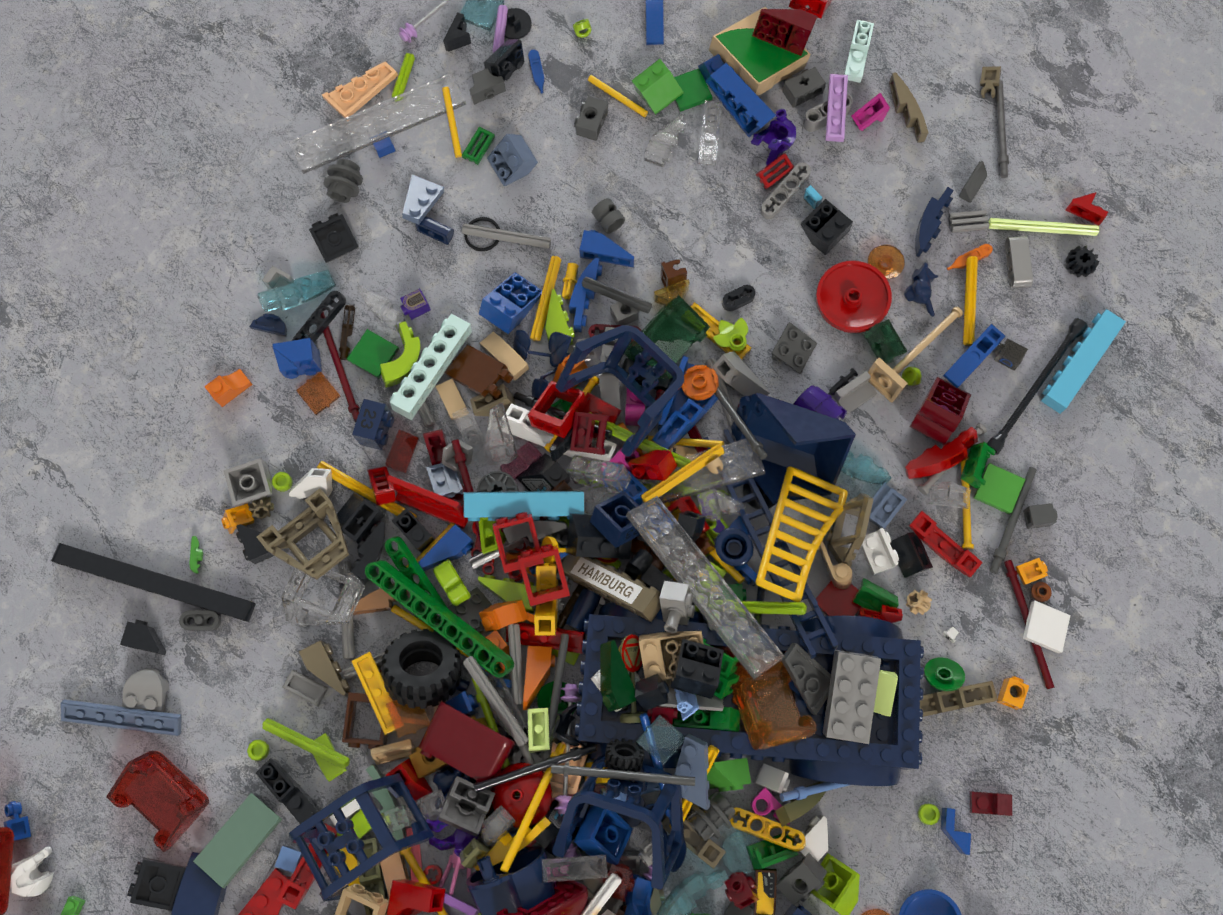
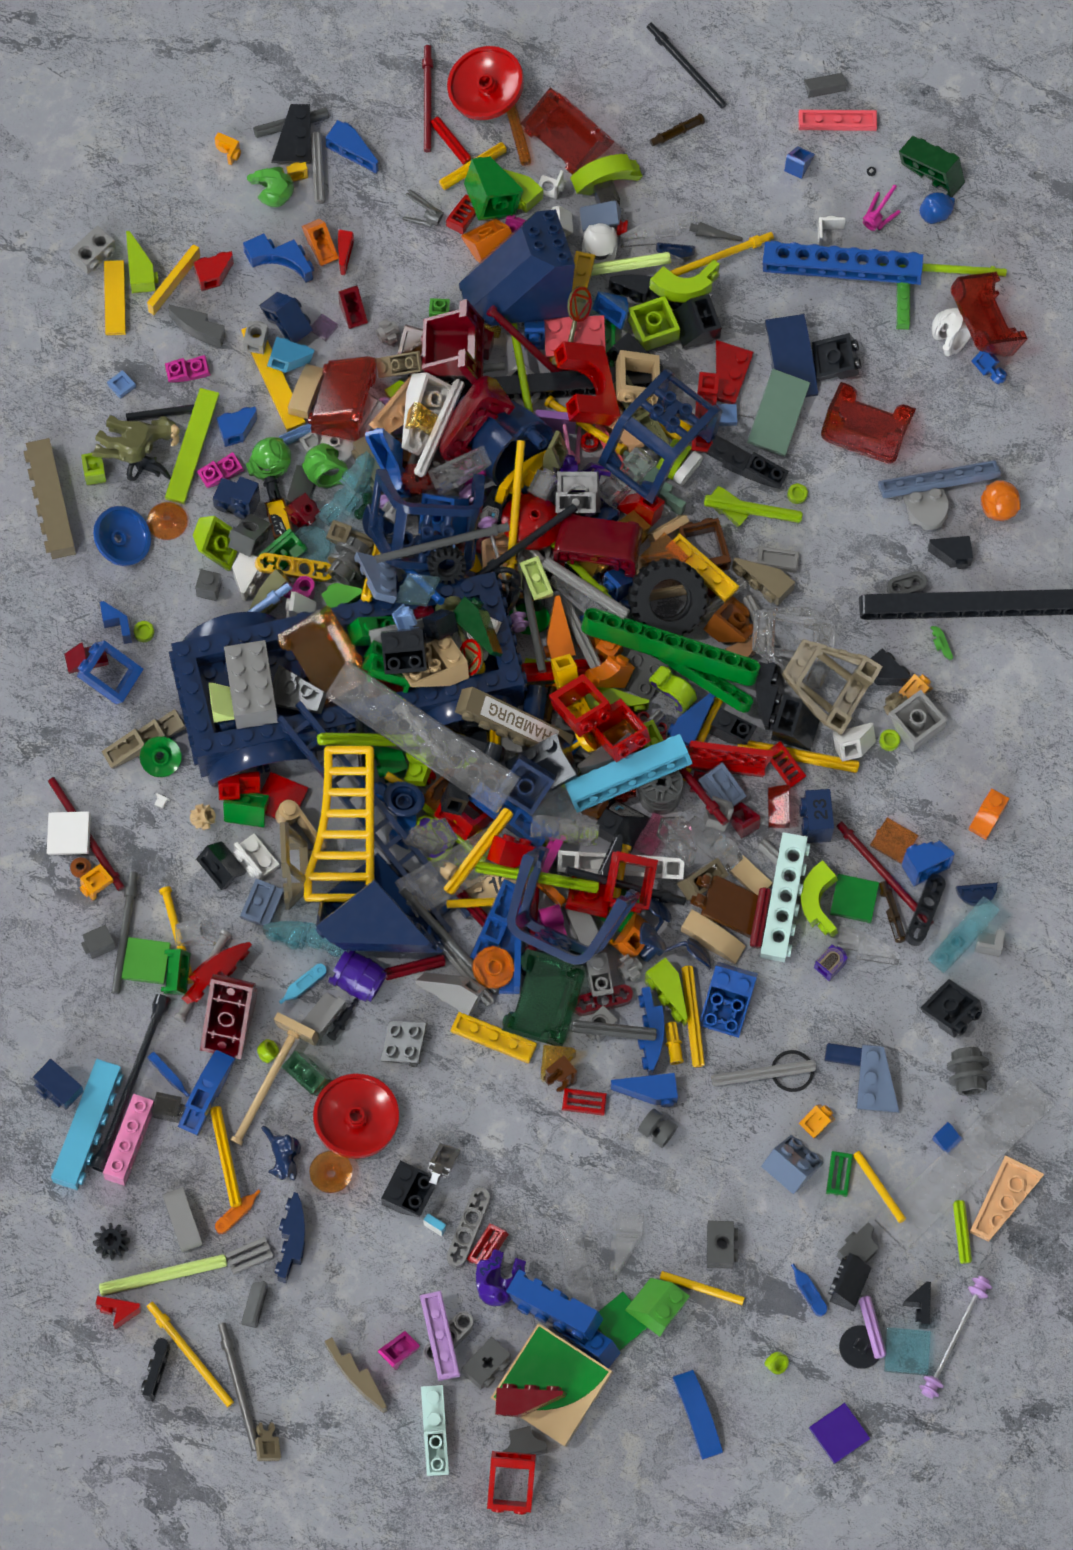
camera: 155 degrees right, 5 degrees down
(72, 670) = (1000, 500): none -> orange helmet
(374, 631) = (730, 622): none -> dark orange slope
(457, 356) = (760, 917): none -> dark red axle
(478, 186) = (817, 1120): none -> light orange bracket
(583, 433) = (594, 862): dark red plate -> none
(659, 259) = (580, 1109): none -> red tile
(671, 881) = (367, 498): none -> clear green arm
(676, 605) = (441, 706): light grey brick -> none
(731, 333) = (478, 1035): lime plate -> none
(740, 301) = (485, 1086): black beam -> none
(793, 236) = (442, 1162): none -> flat silver hinge
(855, 840) = (208, 585): none -> dark grey brick
(868, 424) = (305, 982): none -> medium azure piece
(944, 546) = (189, 883): red slope -> none
(961, 759) = (120, 693): none -> blue window
(1003, 385) = (167, 1073): none -> blue piece
(1007, 699) = (88, 752): light orange brick -> none
(1050, 191) = (164, 1322): none -> yellow bar
(1050, 336) = (128, 1140): none -> bright pink brick
(1066, 157) = (156, 1369): none -> black hinge
(1107, 392) = (56, 1085): none -> dark blue brick

